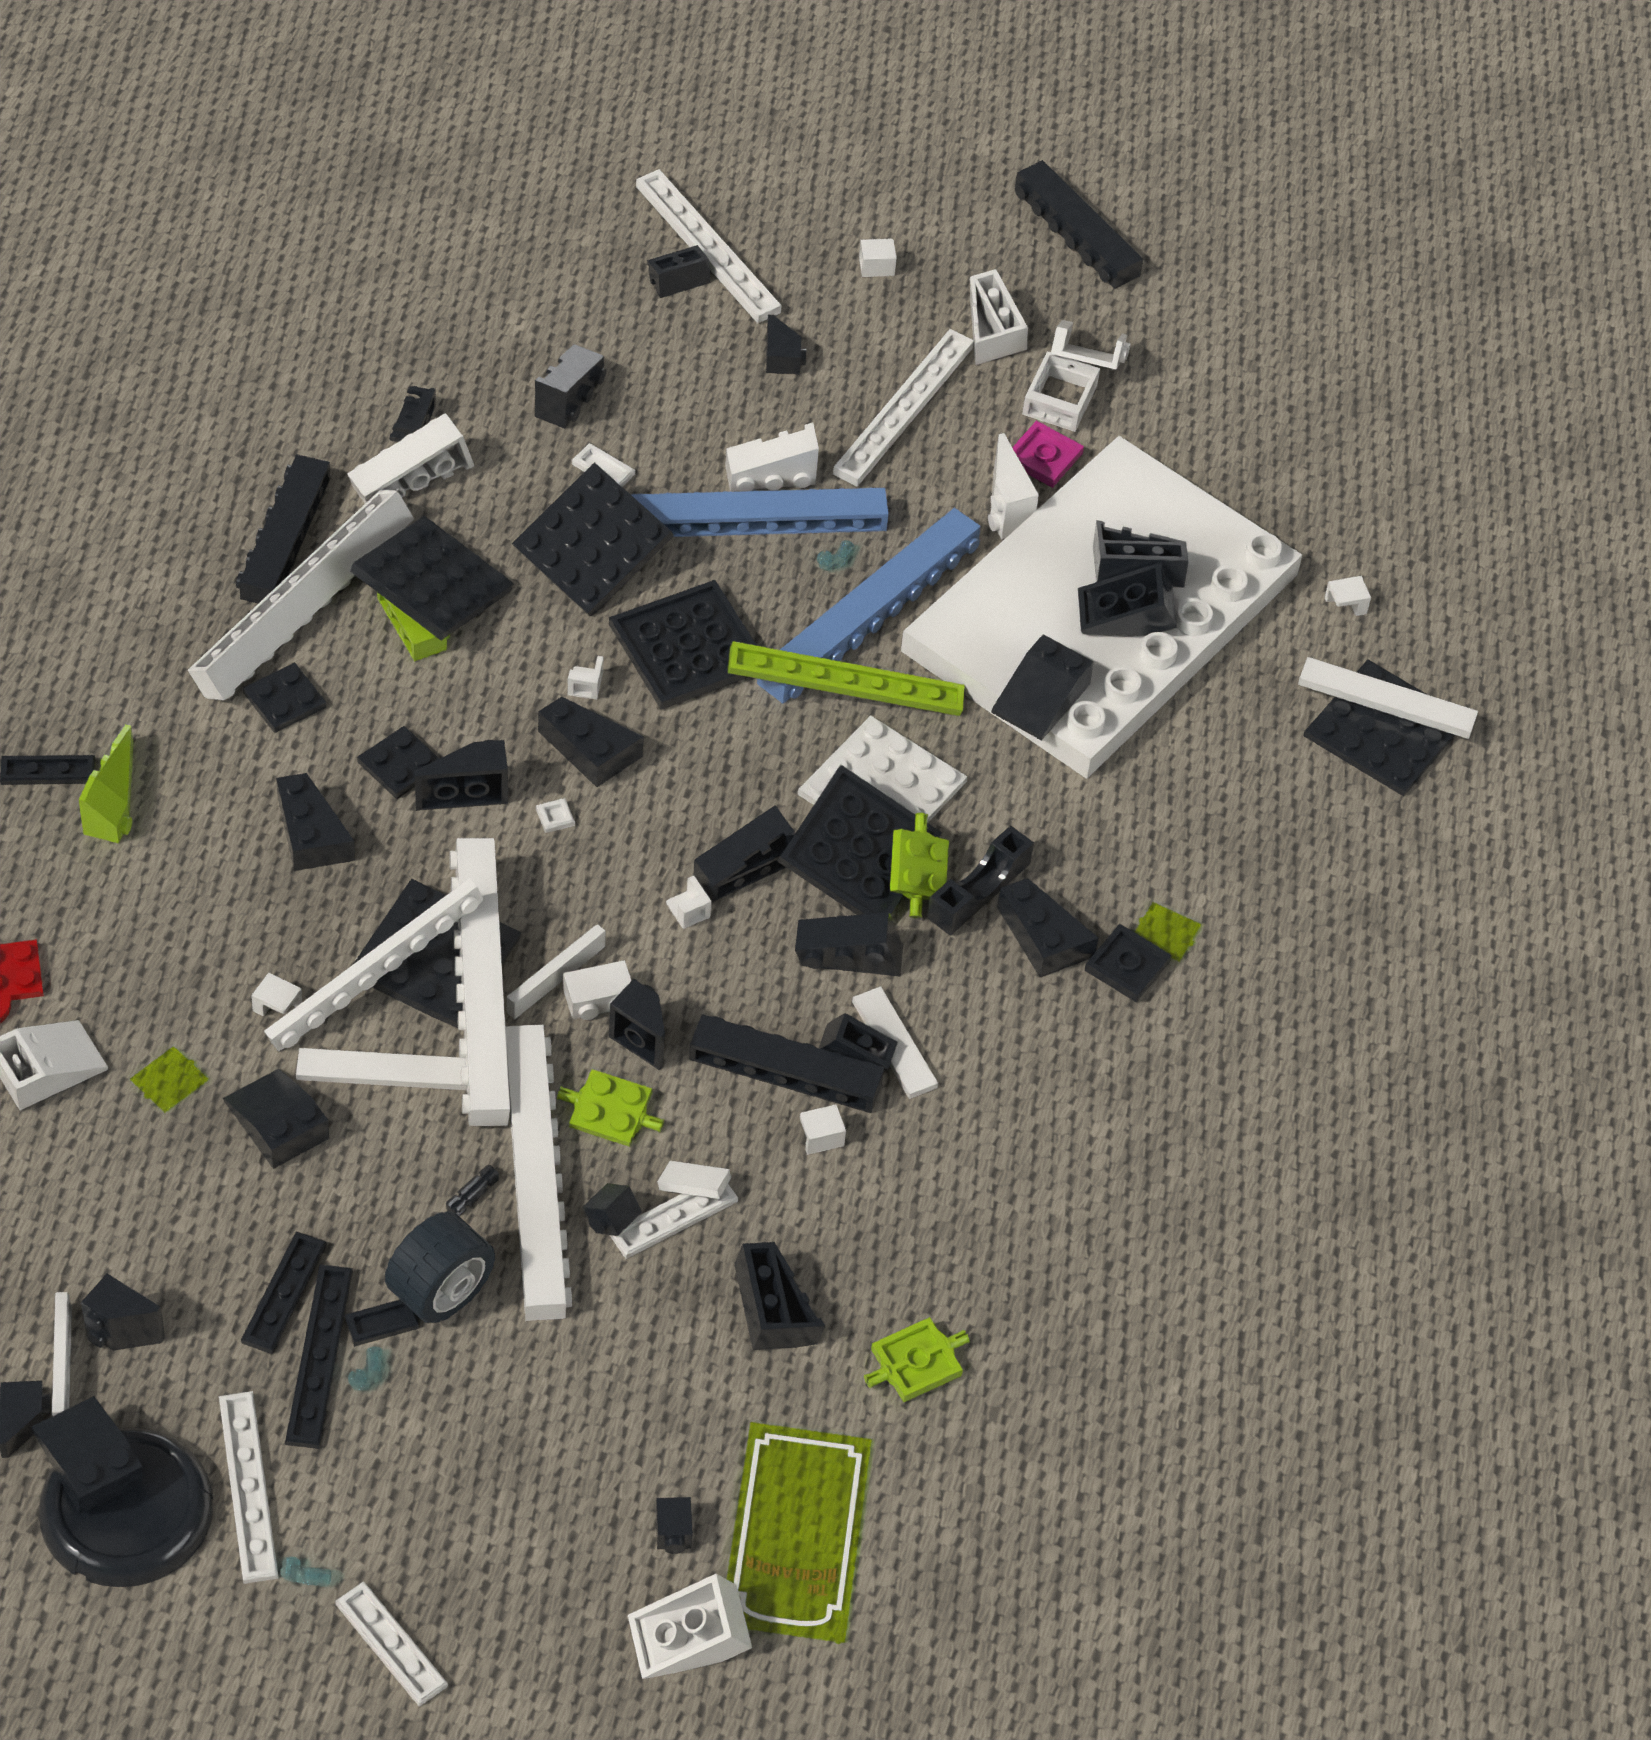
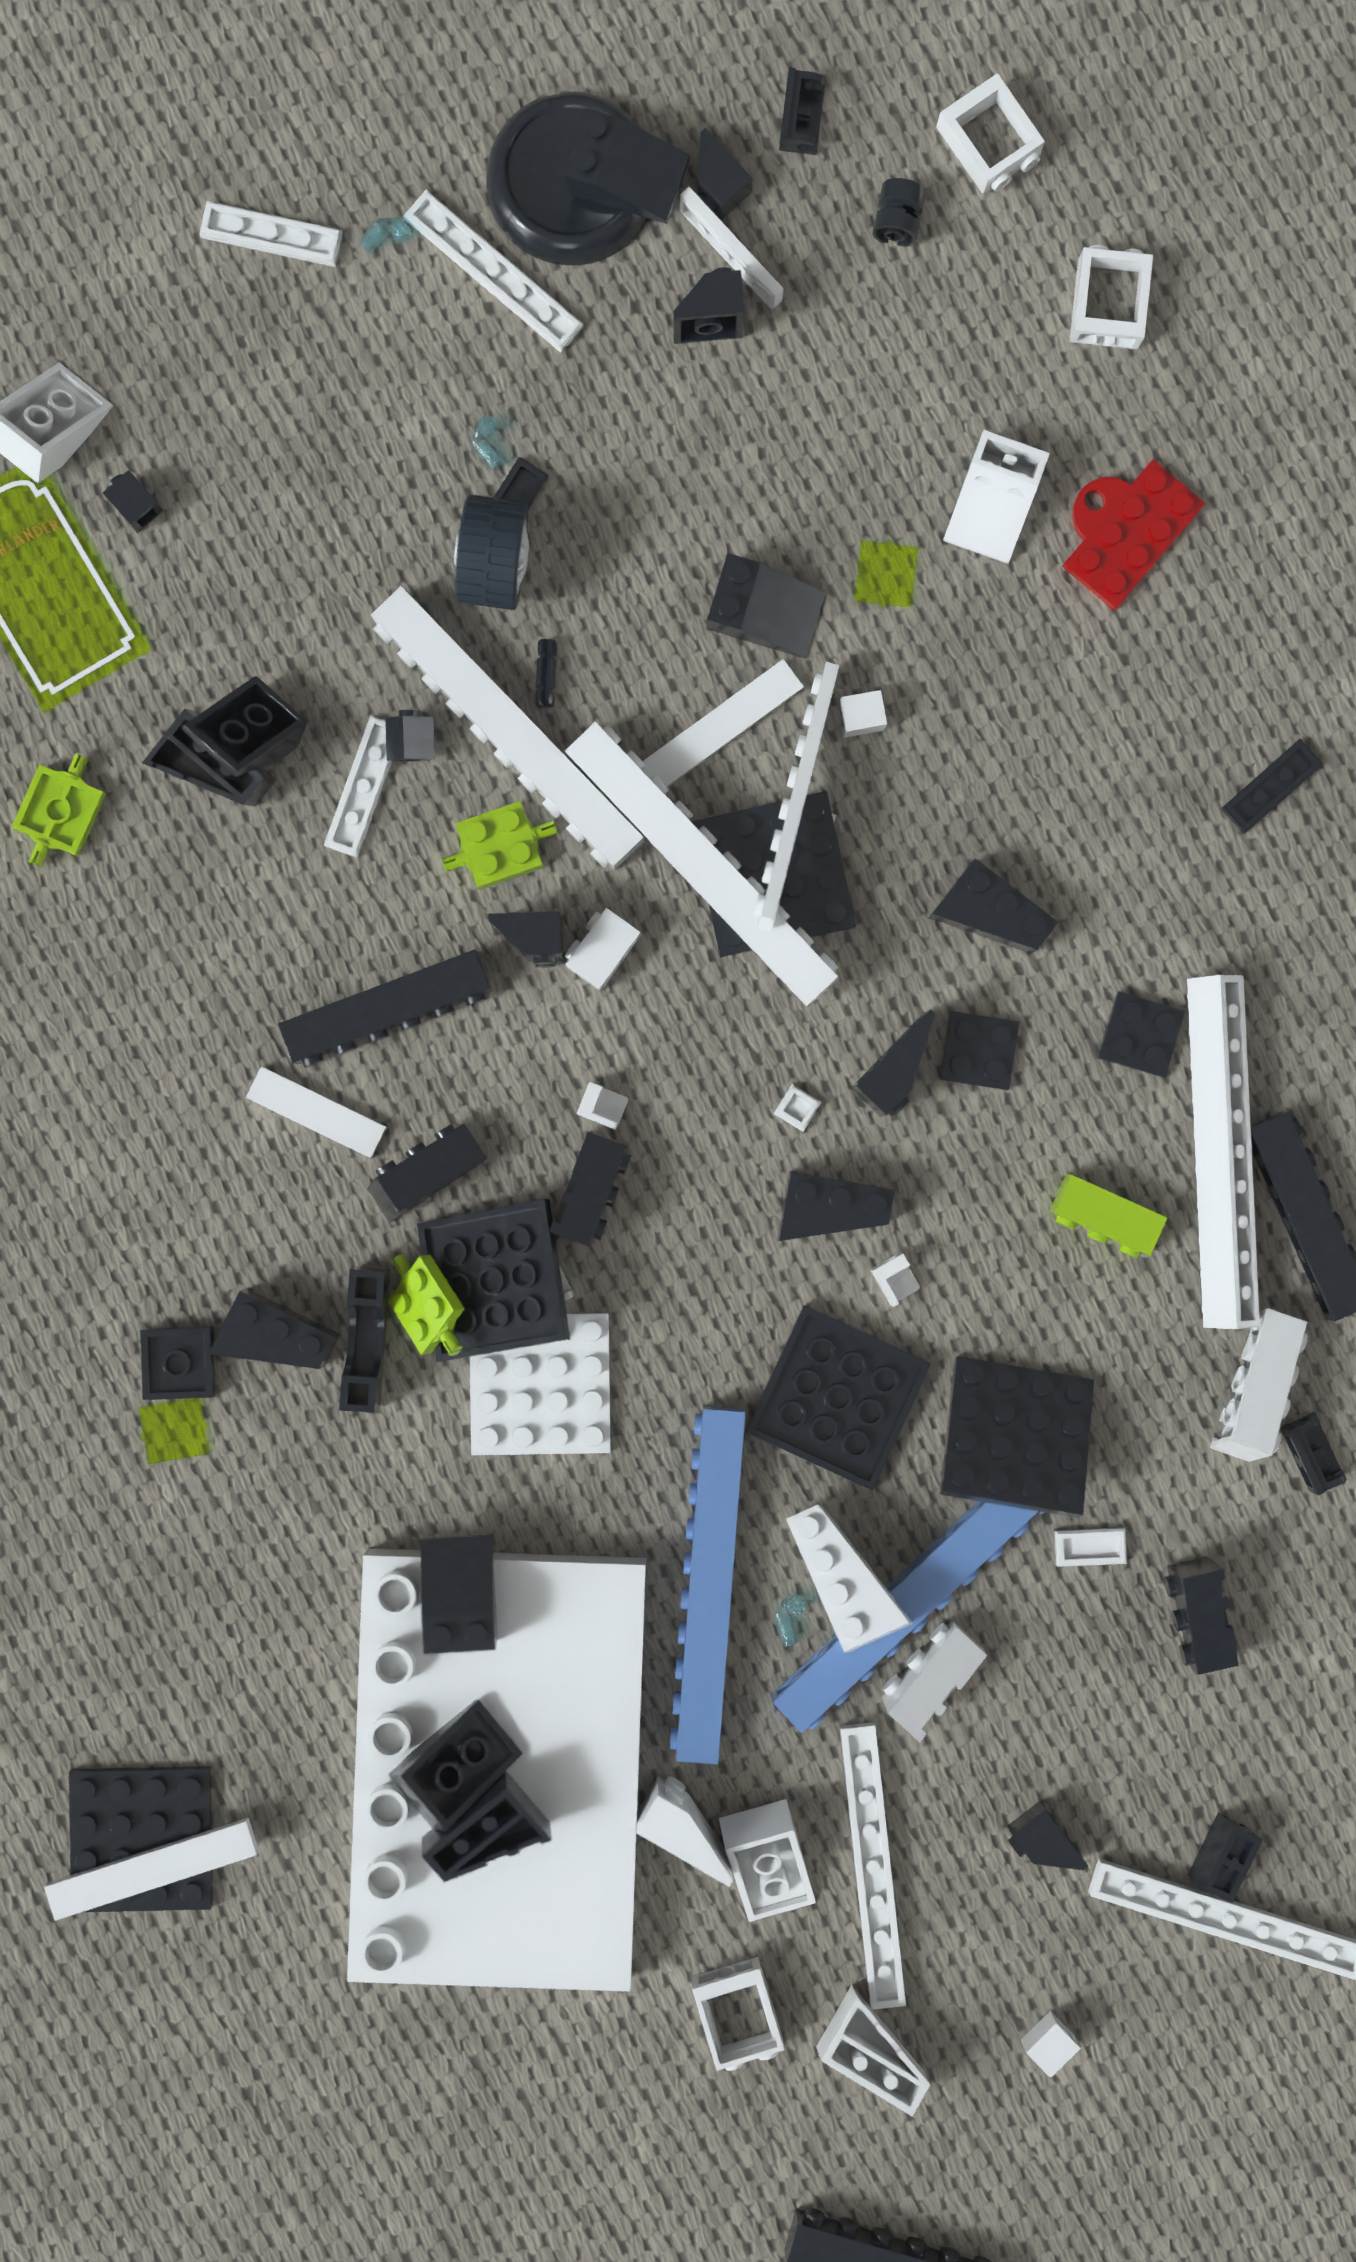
camera: 140 degrees right, 35 degrees up
(108, 792) = (1181, 786): lime wedge -> none
(283, 1292) = (615, 457): black tile -> none
(319, 1357) = (538, 426): black tile -> none
(432, 577) = (1122, 1264): black plate -> none
(552, 973) = (655, 938): white tile -> none
(694, 1179) = (369, 827): white tile -> none
(726, 1285) = (248, 728): none -> black slope
(781, 527) = (849, 1589): none -> white wedge
(823, 1129) = (302, 965): white panel -> none
(846, 678) = (655, 1463): lime plate -> none
(858, 1041) = (338, 1073): black slope -> none
(966, 452) = (766, 1860): none -> white slope
(1046, 453) = (694, 1917): dark pink plate -> none
(1062, 348) = (744, 2086): white panel -> none
(1349, 592) = (277, 1974): white panel -> none

